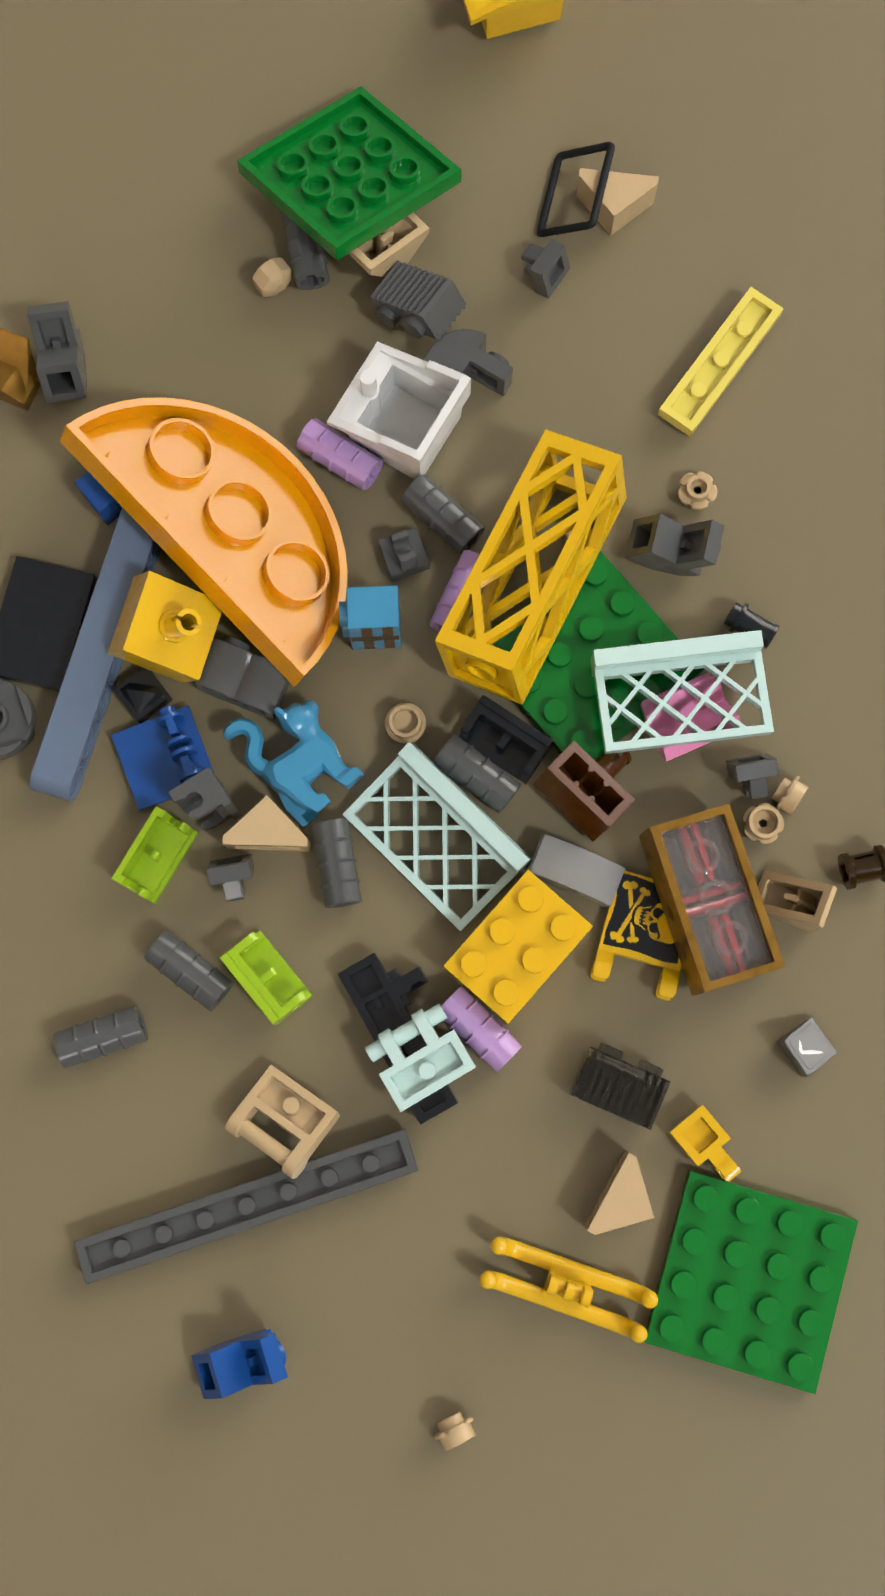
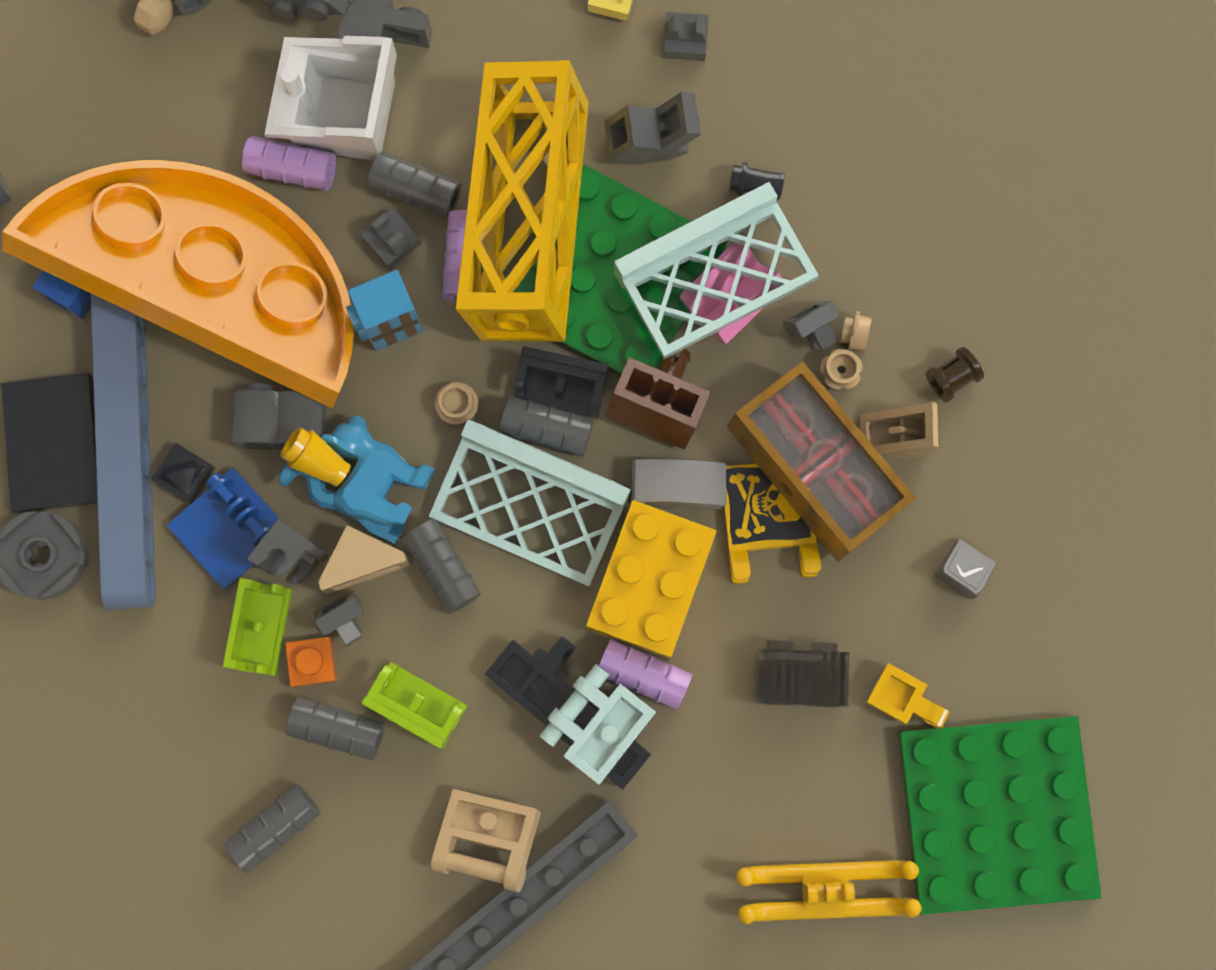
camera: 25 degrees left, 0 degrees up
(165, 627) = (181, 398): yellow brick -> none
(190, 903) = (311, 662): none -> orange plate
(259, 722) = (314, 457): none -> yellow cone
(622, 1199) = (846, 784): tan slope -> none
(694, 500) = (654, 81): tan plate -> none
(738, 469) = (686, 36): none -> dark grey tile

